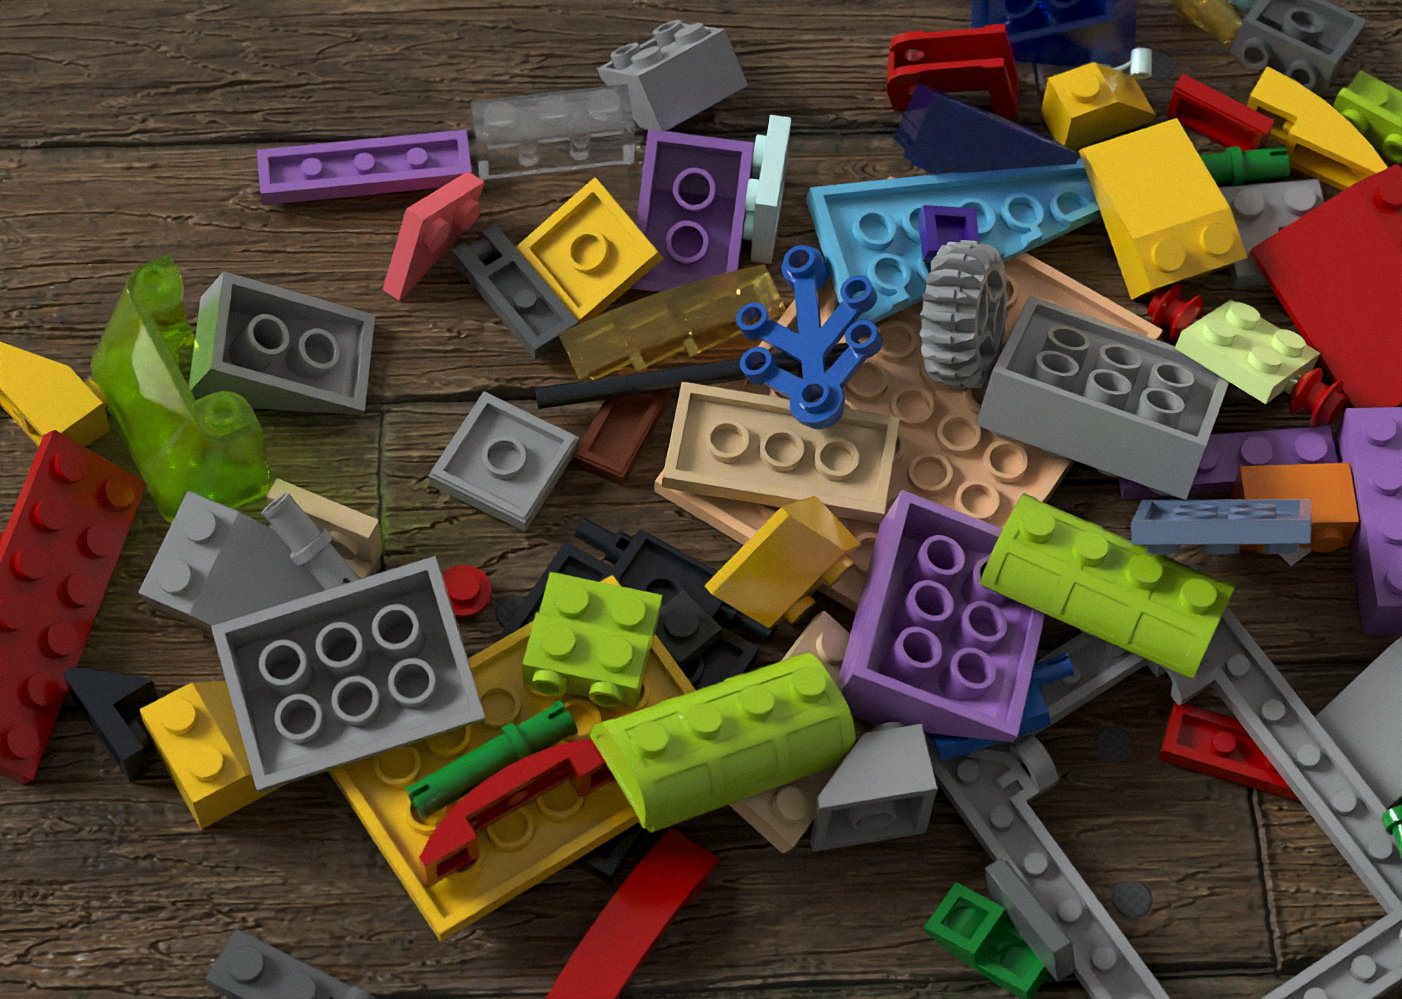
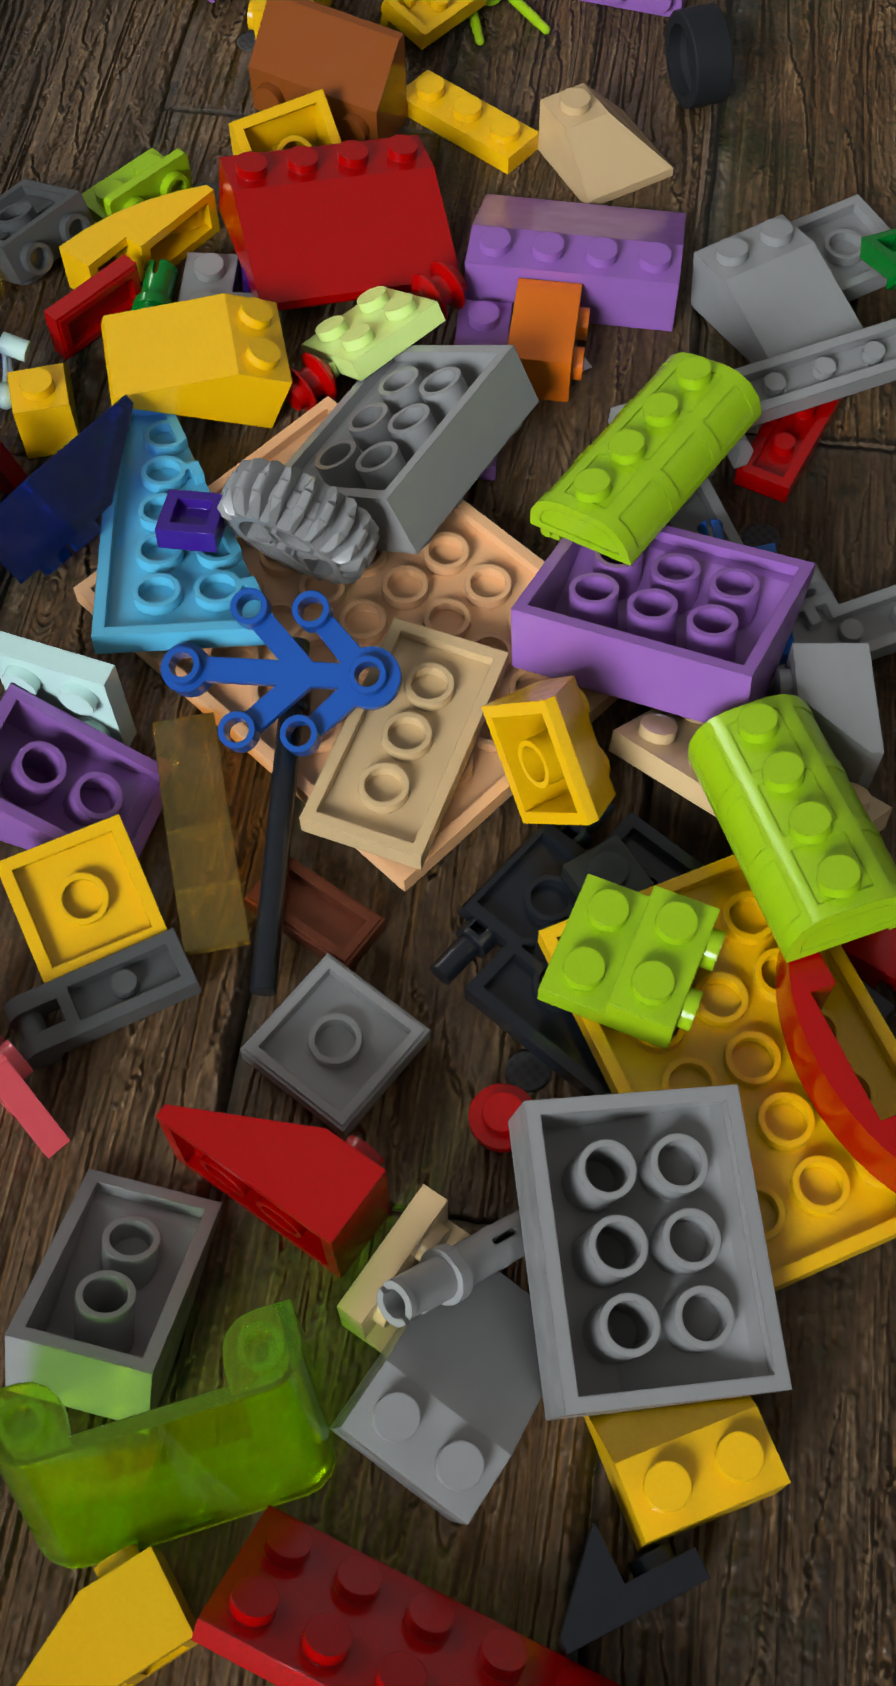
camera: 75 degrees left, 0 degrees up
(364, 447) = (291, 1176): none -> red slope
(488, 759) = (767, 1067): green pin -> none
(1222, 525) = (606, 345): sand blue plate -> none

